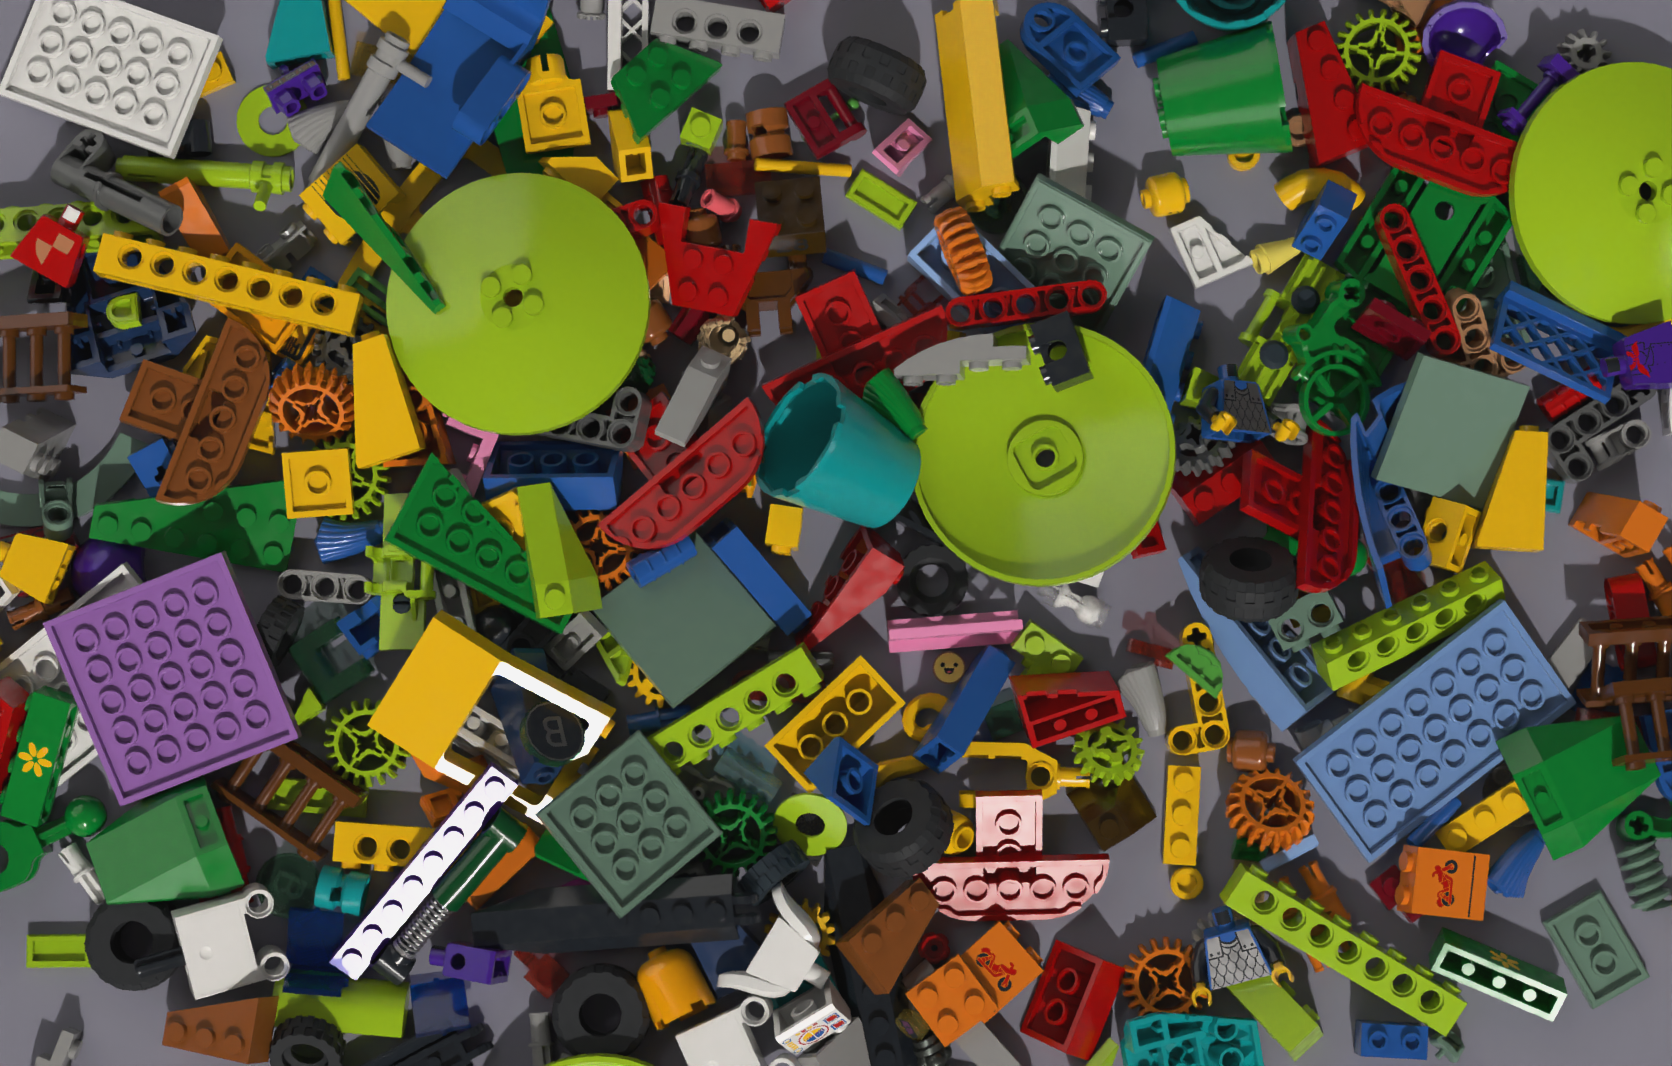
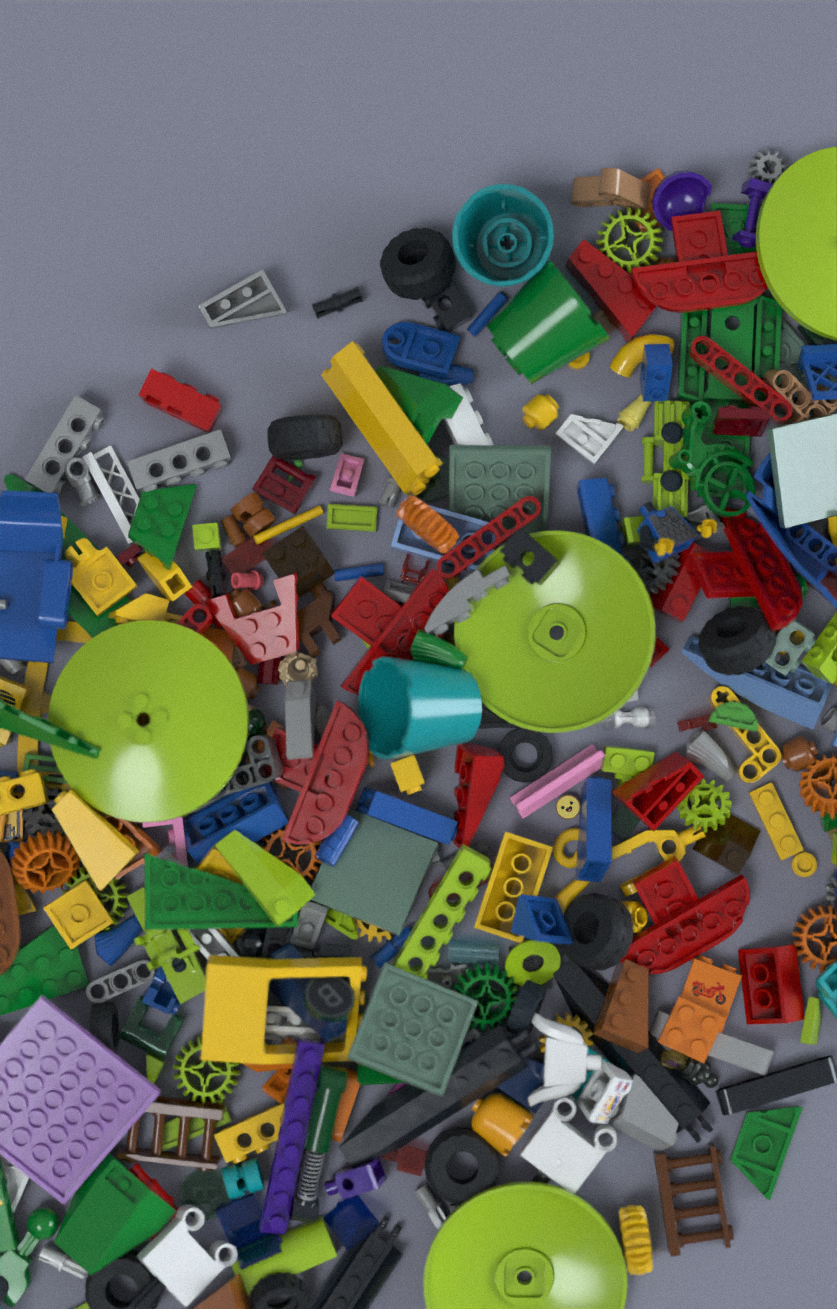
camera: 25 degrees left, 0 degrees up
(940, 941) = (653, 999): red plate -> none

